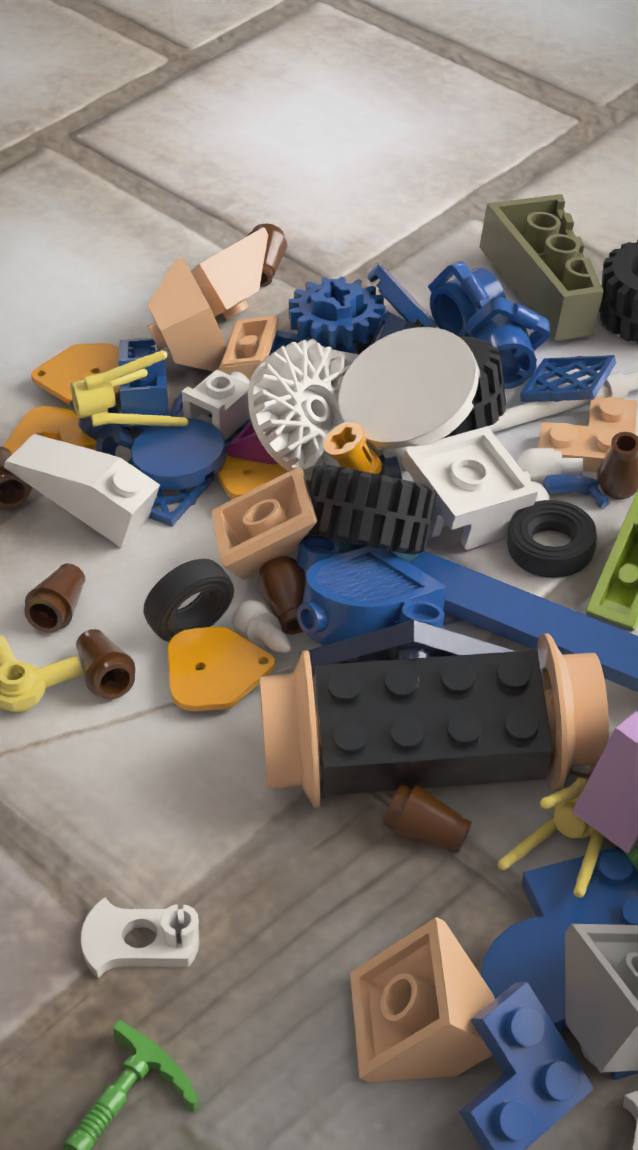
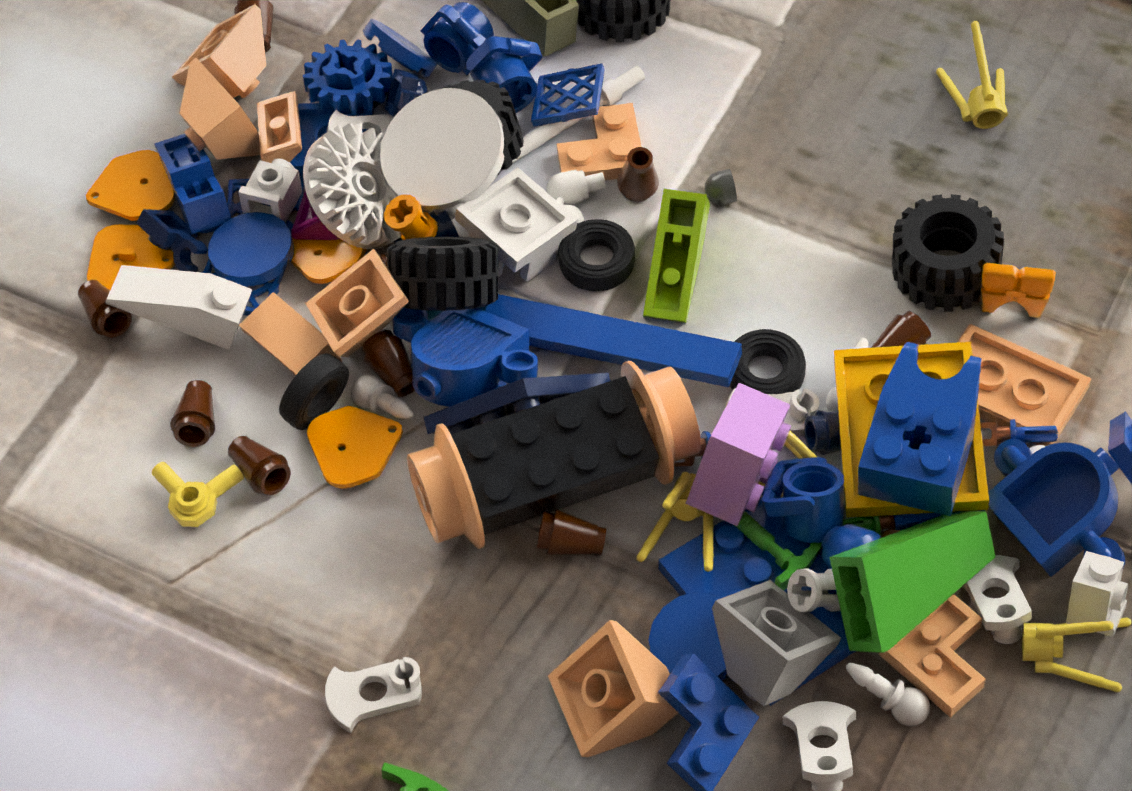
camera: 15 degrees left, 10 degrees up
(96, 395) = (165, 215): light yellow plant -> none
(179, 535) = (285, 334): none -> light nougat hinge
(575, 483) = (602, 197): blue piece -> none

